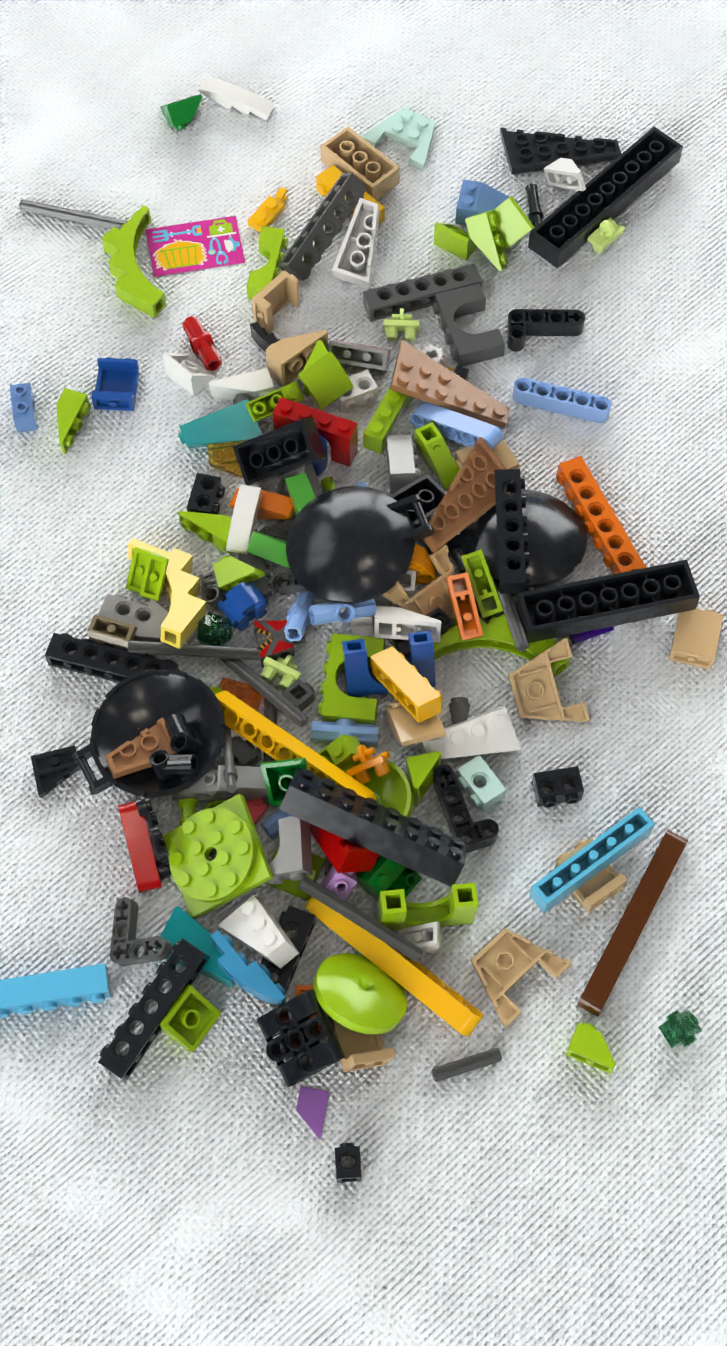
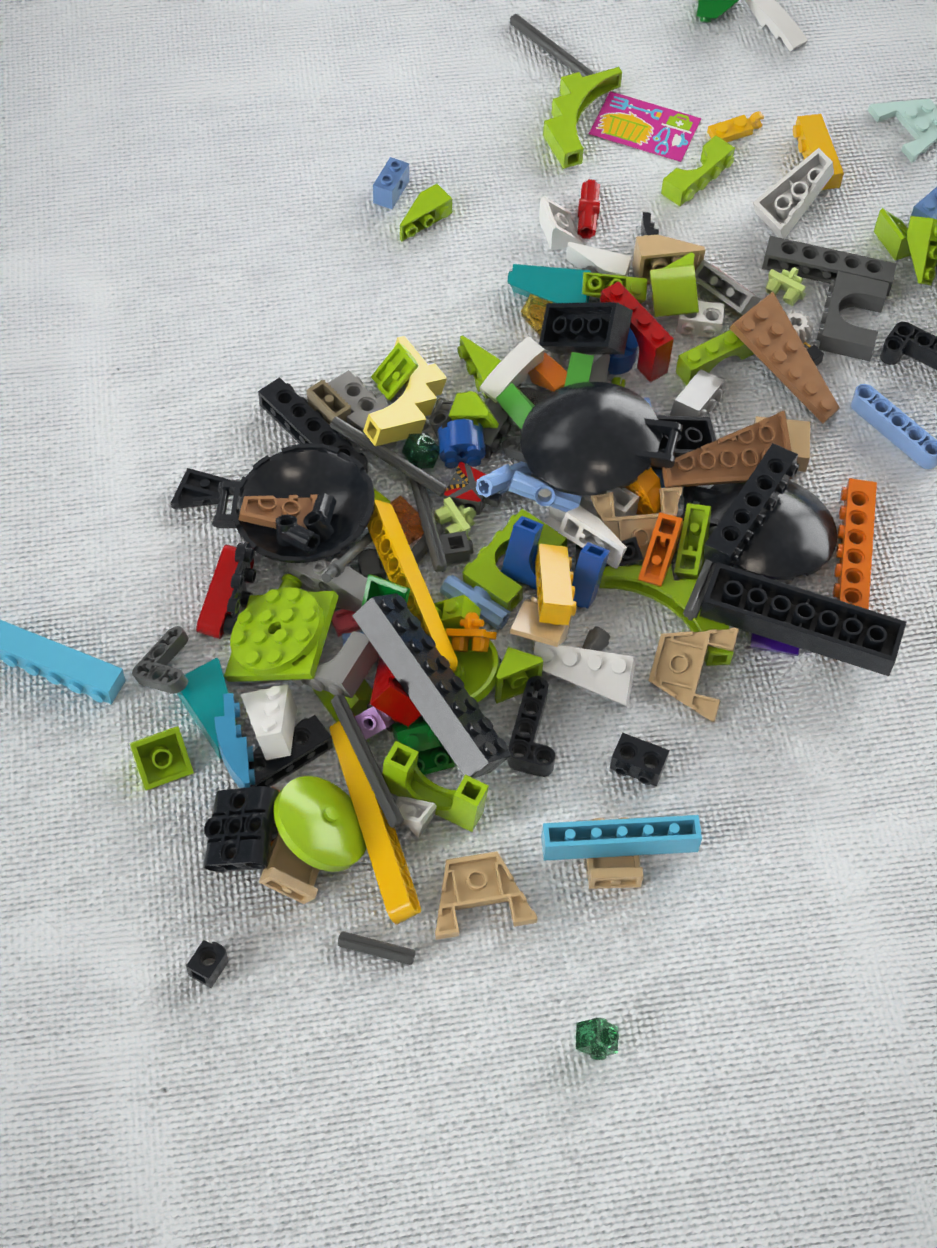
camera: 30 degrees right, 5 degrees down
(116, 384) = (487, 205): blue panel -> none
(139, 1044) = (104, 752): black brick -> none
(202, 497) = (498, 335): black brick -> none
(273, 297) = (681, 201): tan panel -> none
(312, 1107) = (214, 900): medium lavender sticker -> none
(324, 215) = (720, 179): dark grey brick -> none
(357, 156) = (850, 126): tan brick -> none
(436, 453) = (737, 404): lime slope -> none
(456, 425) = (771, 393): light blue beam -> none
(479, 771) = (570, 702): light aqua brick -> none
(590, 1048) = (499, 1002): lime slope -> none
(632, 923) = (622, 919): reddish brown beam -> none
(696, 638) = (874, 704): tan panel -> none

